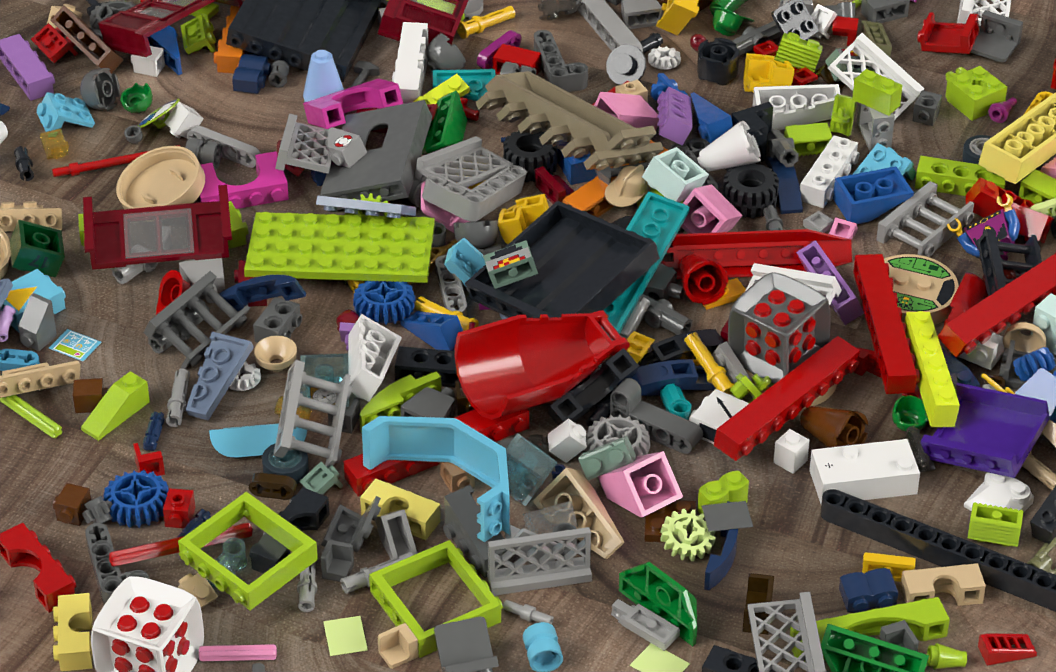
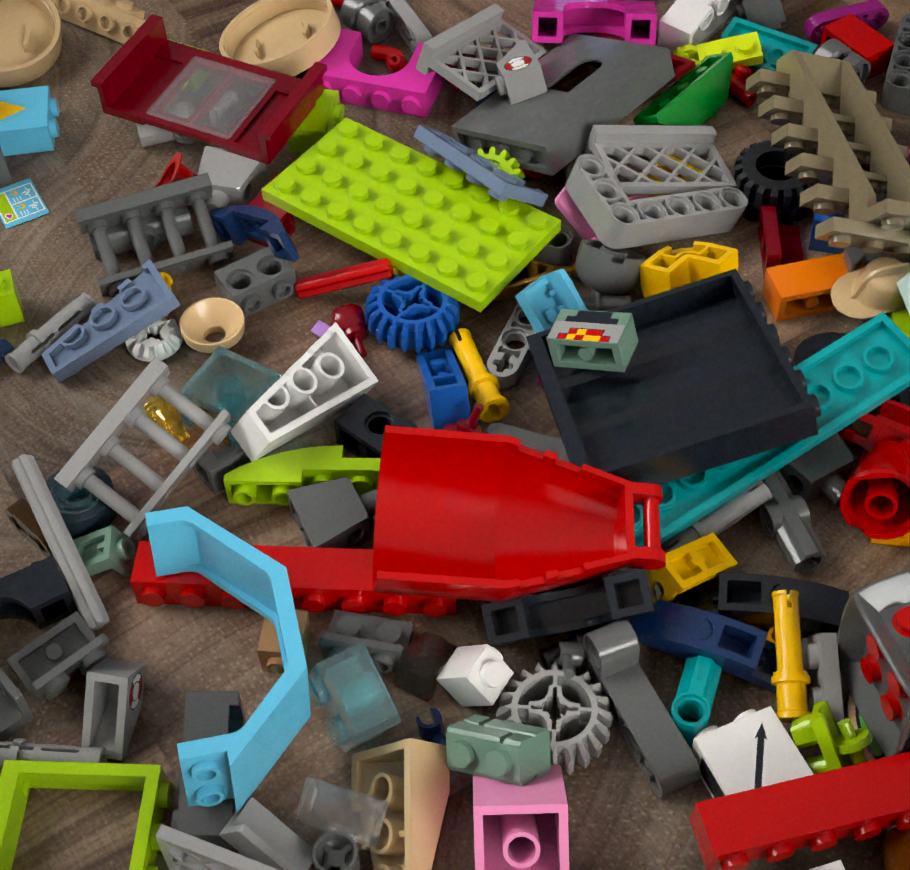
camera: 35 degrees right, 10 degrees up
(37, 248) = (69, 59): dark green brick -> none
(238, 172) = (391, 56): none -> red arm
(248, 439) = (61, 434): medium azure brick -> none
(295, 475) = (60, 542): none -> light grey axle
(330, 299) = (343, 278): none -> red axle
(421, 512) = (148, 634): light yellow arch -> none
(608, 410) = (570, 656): none -> dark grey hand

